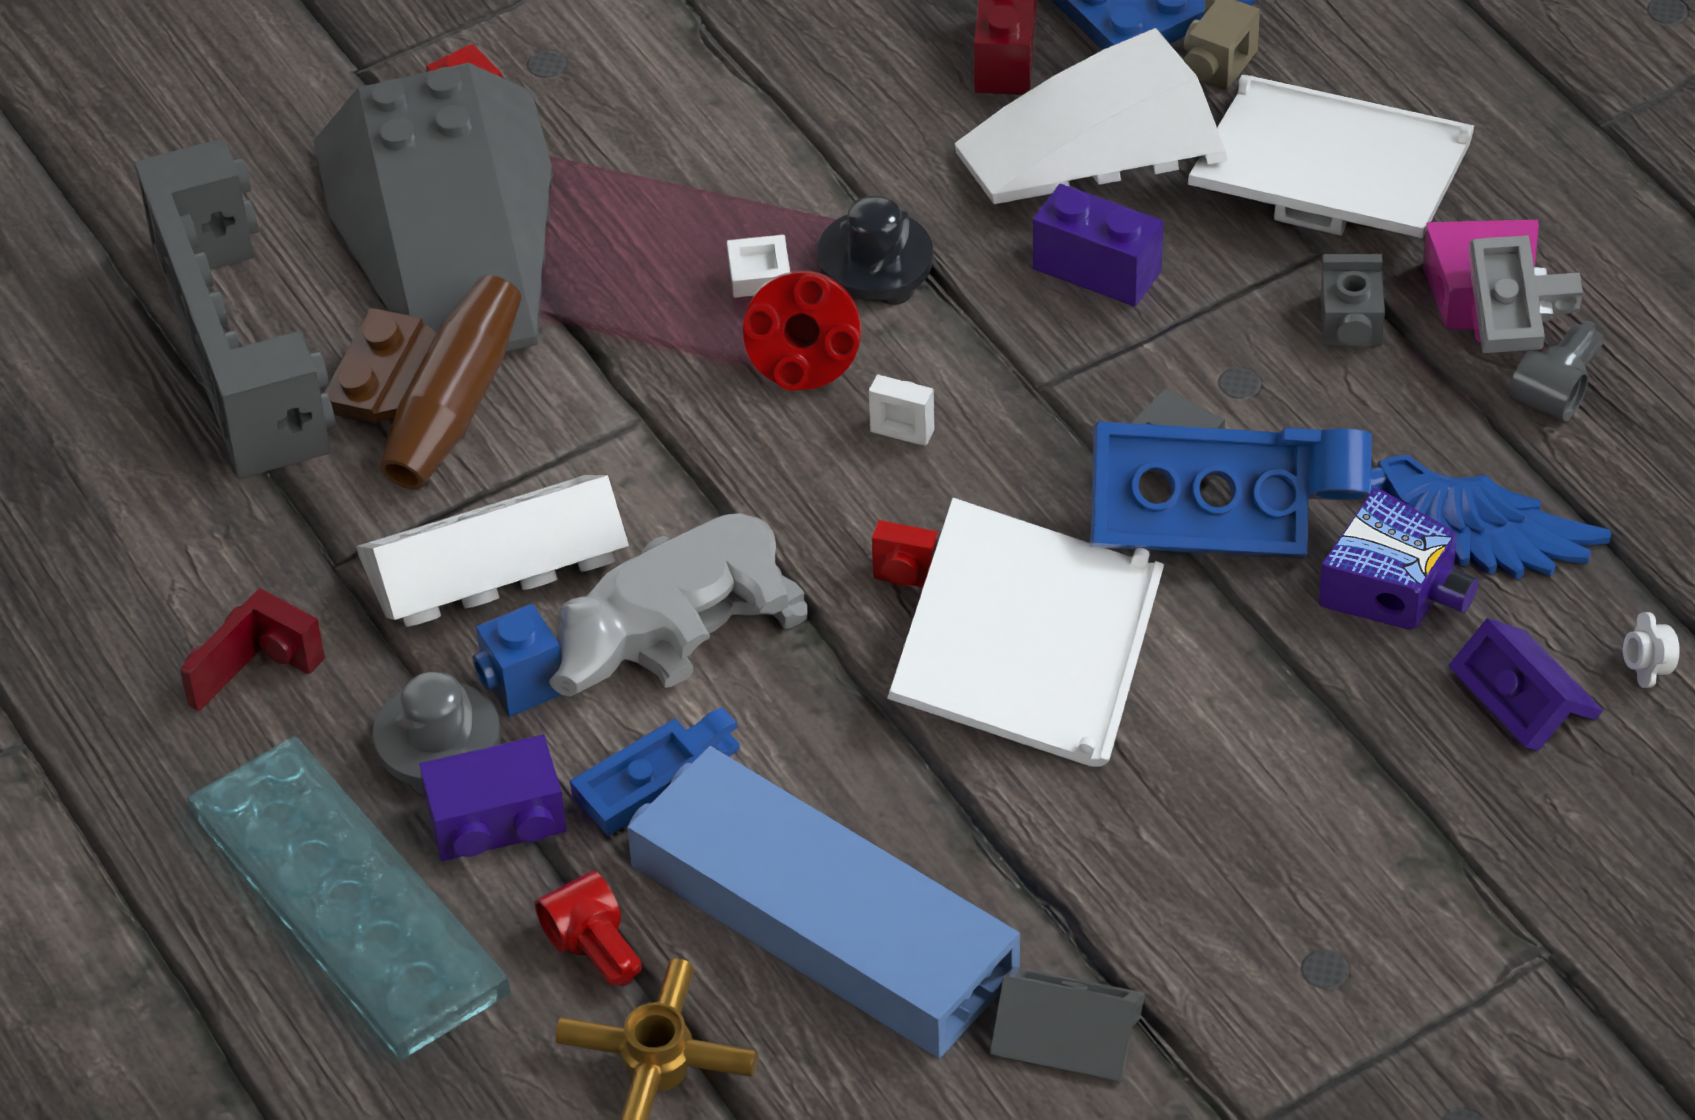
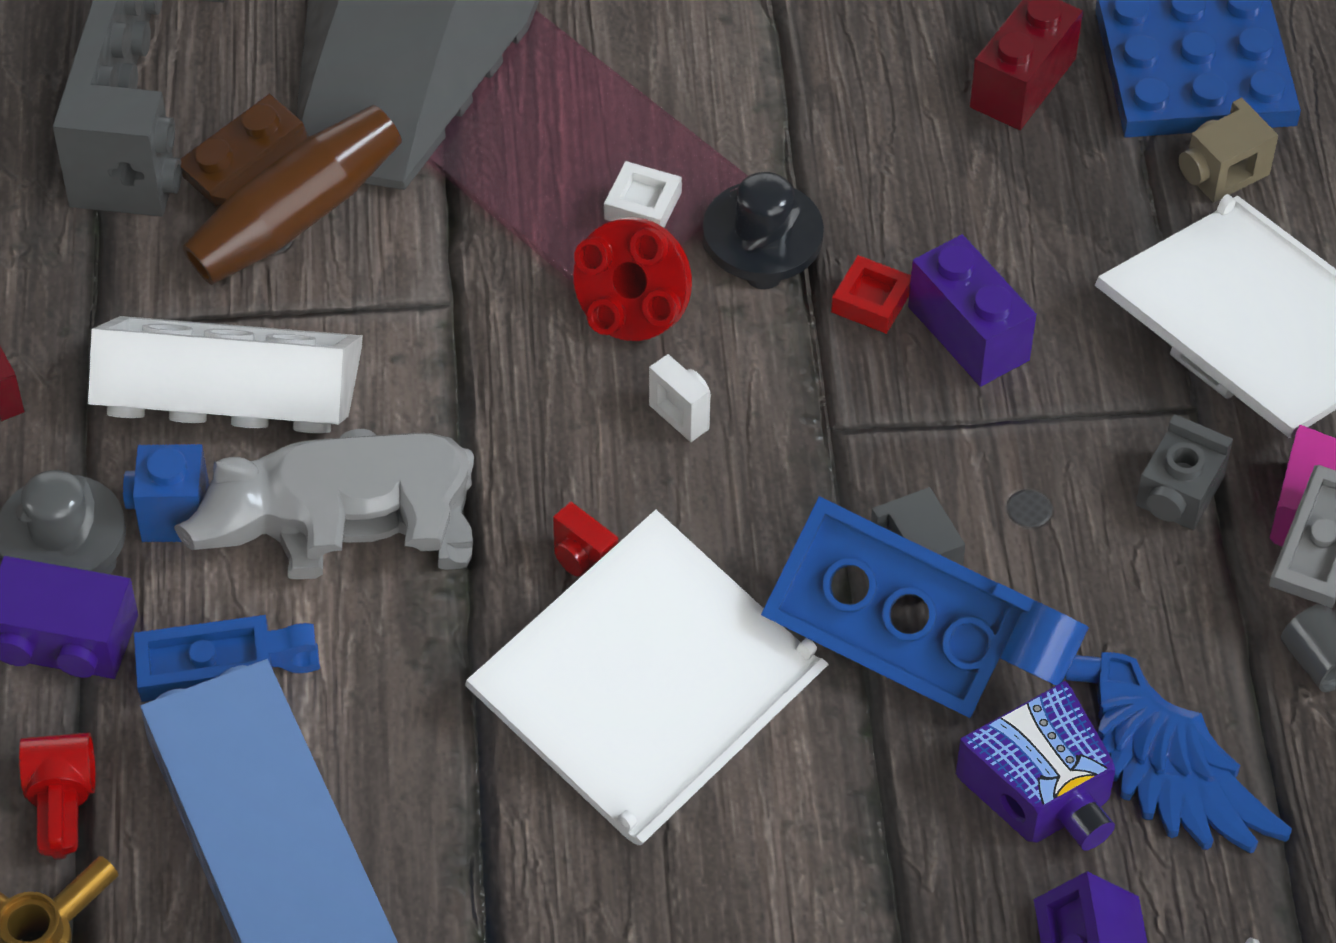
camera: 25 degrees right, 5 degrees up
(1003, 267) = (871, 294): none -> red plate
(1095, 119) = (1042, 184): white wedge -> none

